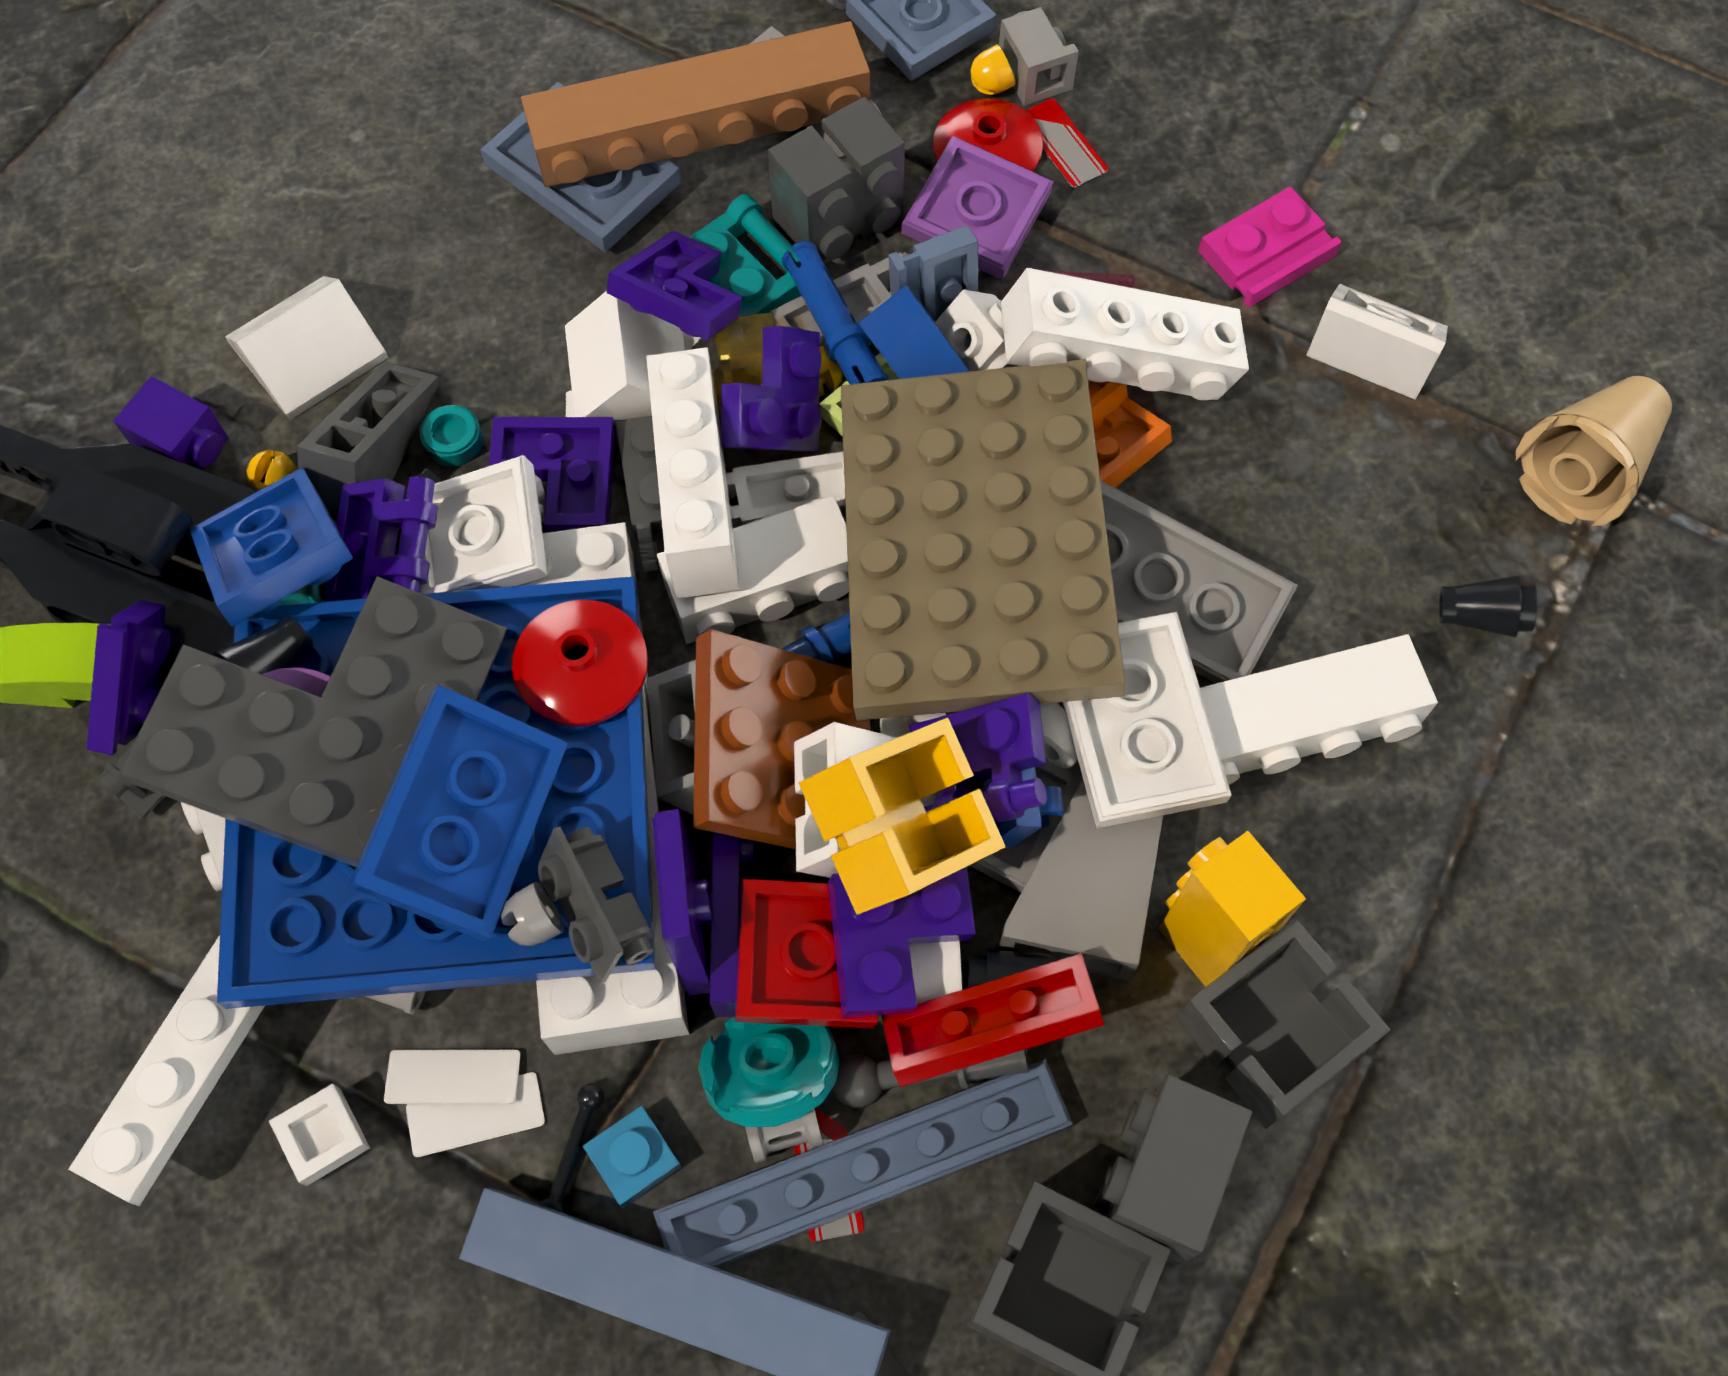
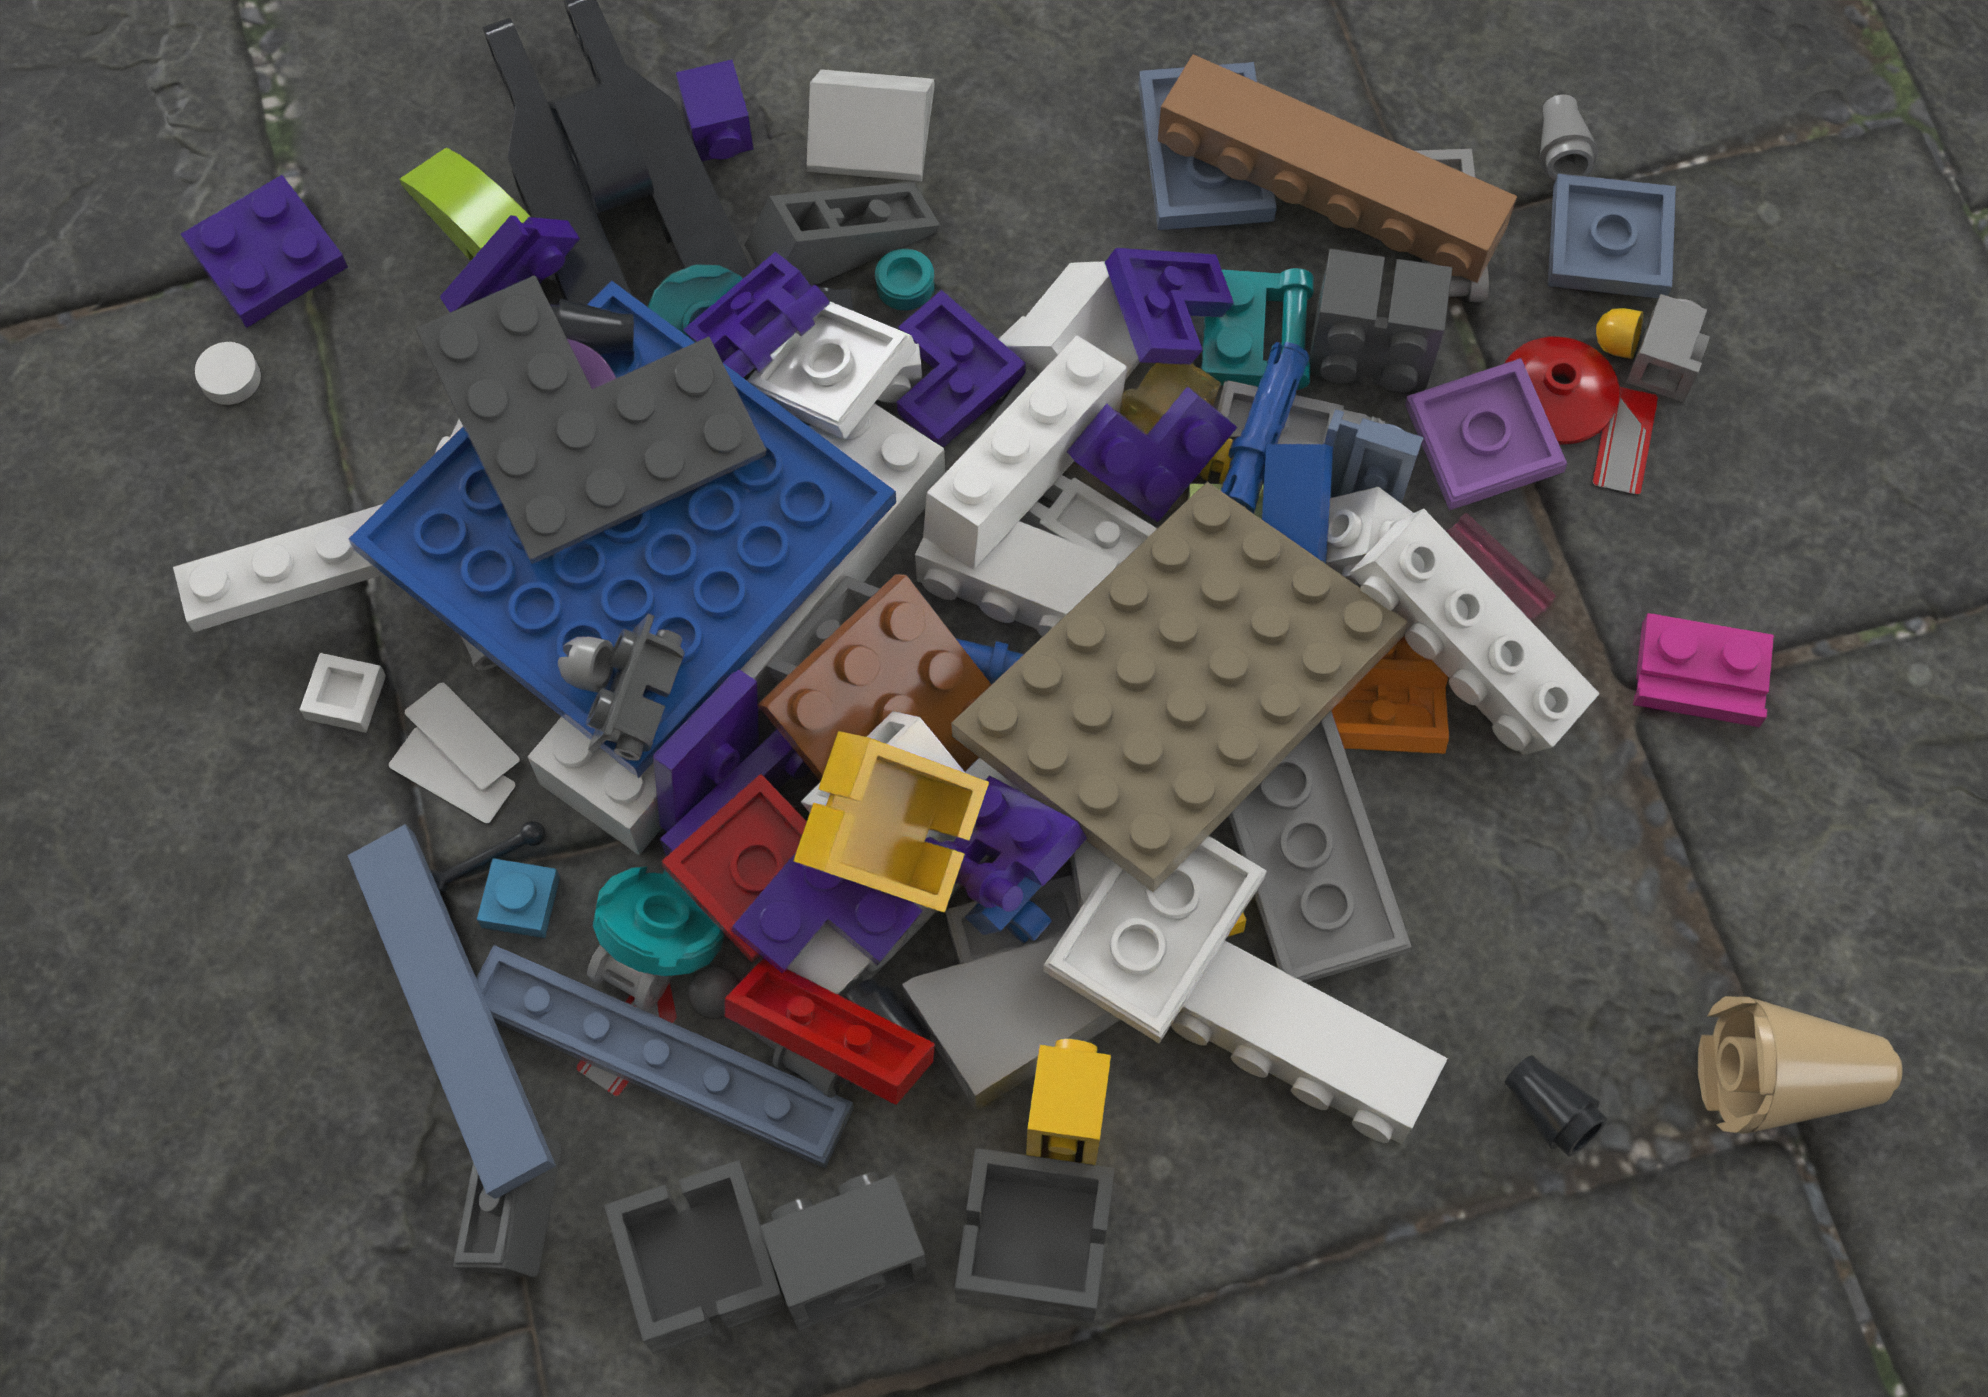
camera: 45 degrees right, 0 degrees up
(269, 547) = (676, 254): blue plate -> none
(274, 462) = (748, 201): yellow hinge -> none
(459, 814) = (604, 549): blue plate -> none
(585, 688) = (799, 543): red dish -> none
(1377, 341) = (1709, 818): white slope -> none

